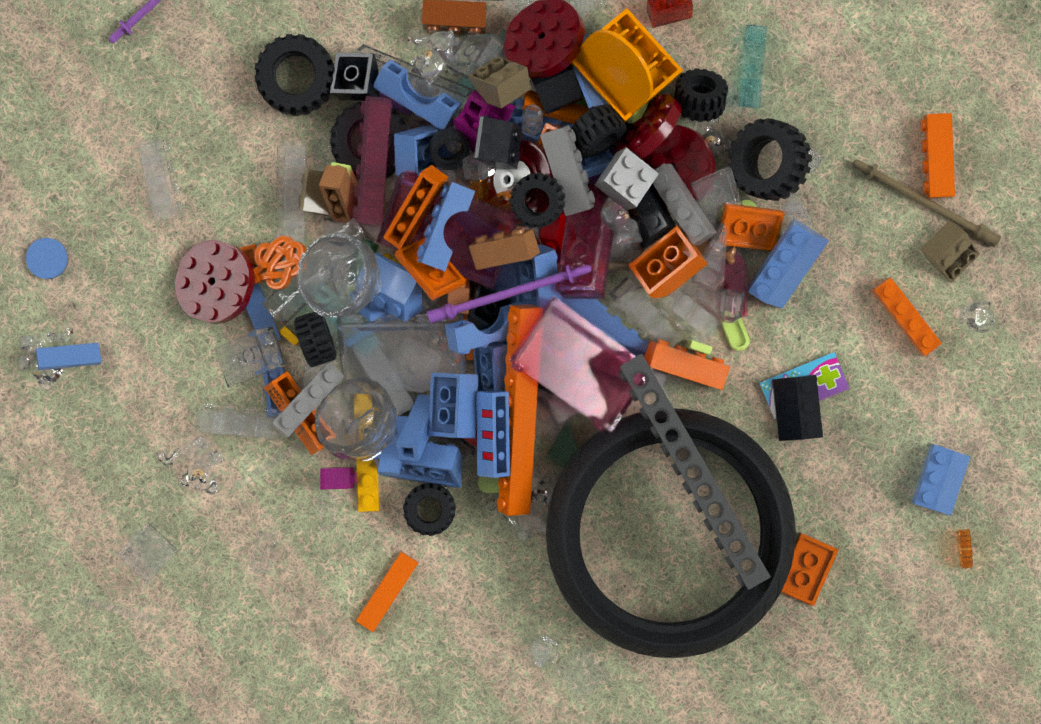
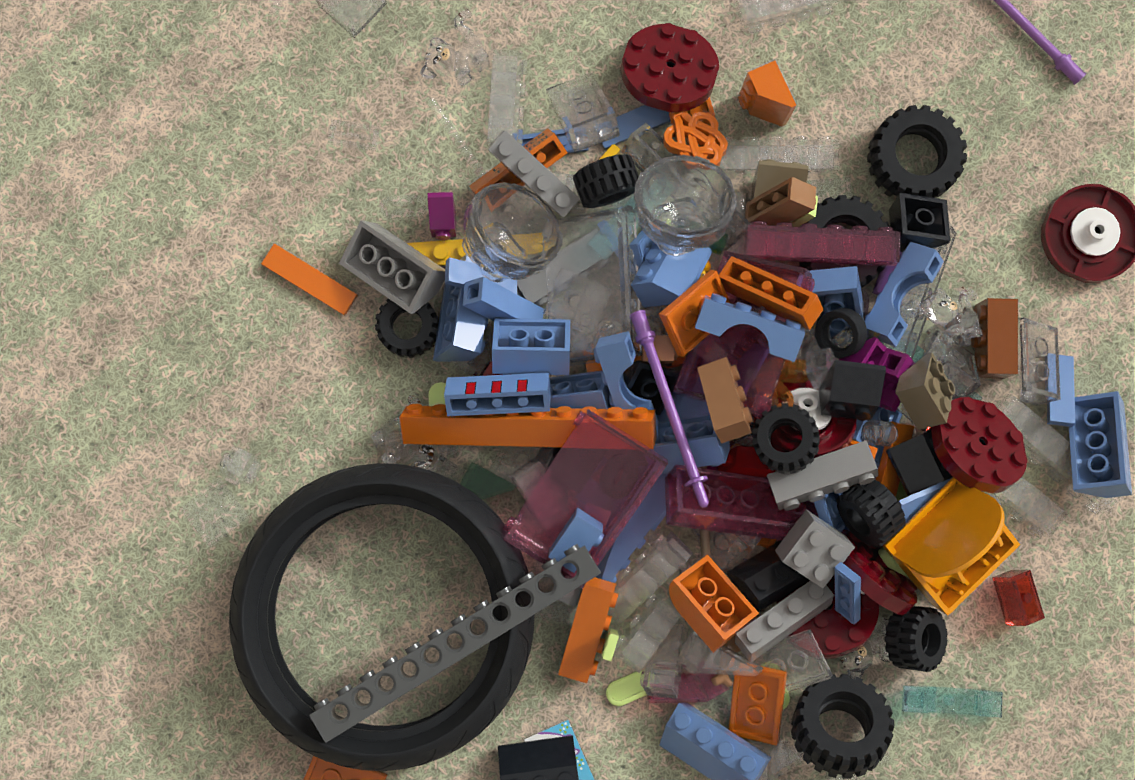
camera: 85 degrees right, 5 degrees down
(242, 201) = (767, 95): none -> orange slope
(380, 520) = (392, 266): none -> light grey slope
(606, 370) = (579, 530): none -> medium blue brick
(624, 228) = (763, 541): clear animal -> none
(663, 153) = (847, 593): none -> medium blue tile

